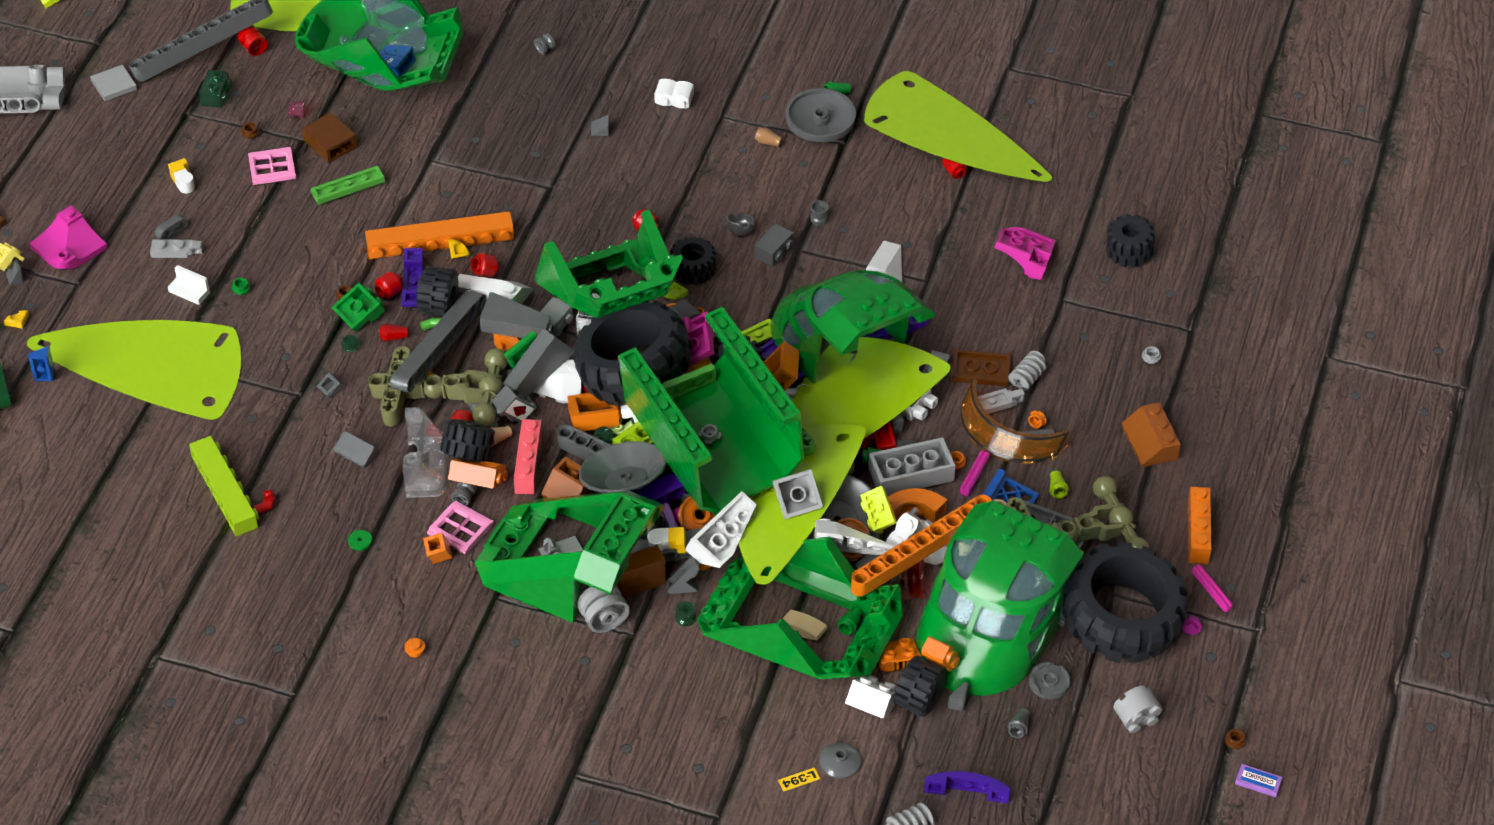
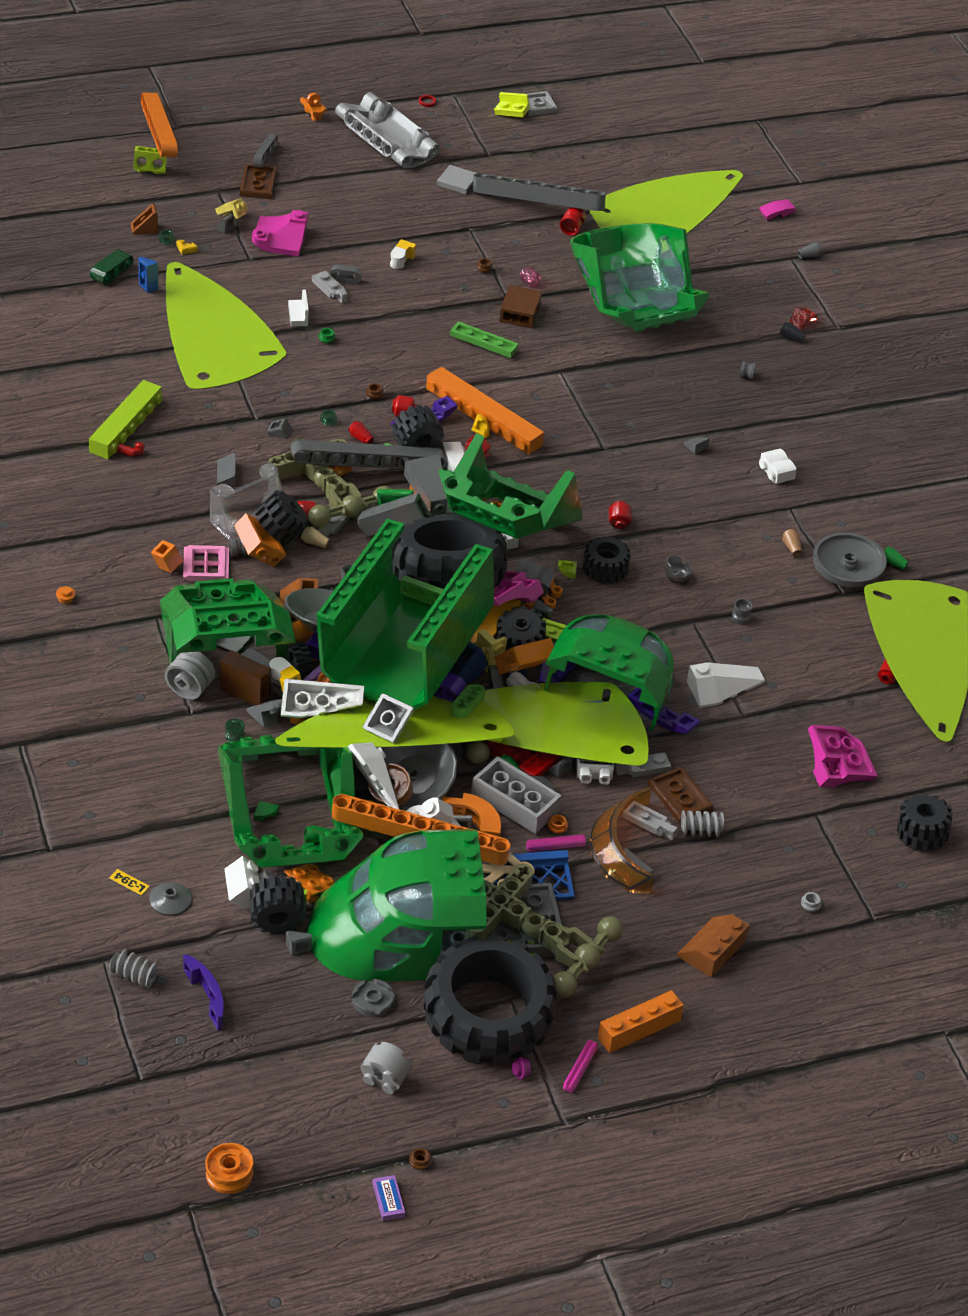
camera: 50 degrees right, 5 degrees down
(215, 89) = (504, 227): clear green brick -> none
(270, 155) = (482, 294): bright pink piece -> none
(359, 307) = (367, 403): green plate -> none
(360, 545) = (144, 517): green wheel -> none
(398, 58) = (630, 296): blue torso -> none
(513, 404) = (346, 527): dark grey brick -> none
(527, 454) = (290, 568): coral arch -> none
(706, 431) = (404, 637): light grey plate -> none
(774, 245) = (676, 600): dark grey brick -> none
(806, 625) = (287, 807): tan slope -> none
(878, 509) = (431, 783): neon yellow bracket -> none
(940, 653) = (310, 893): orange brick -> none
(1019, 724) = (305, 996): flat silver cone -> none
(1037, 419) = (656, 856): orange plate -> none
(1058, 486) = (594, 903): lime cone -> none

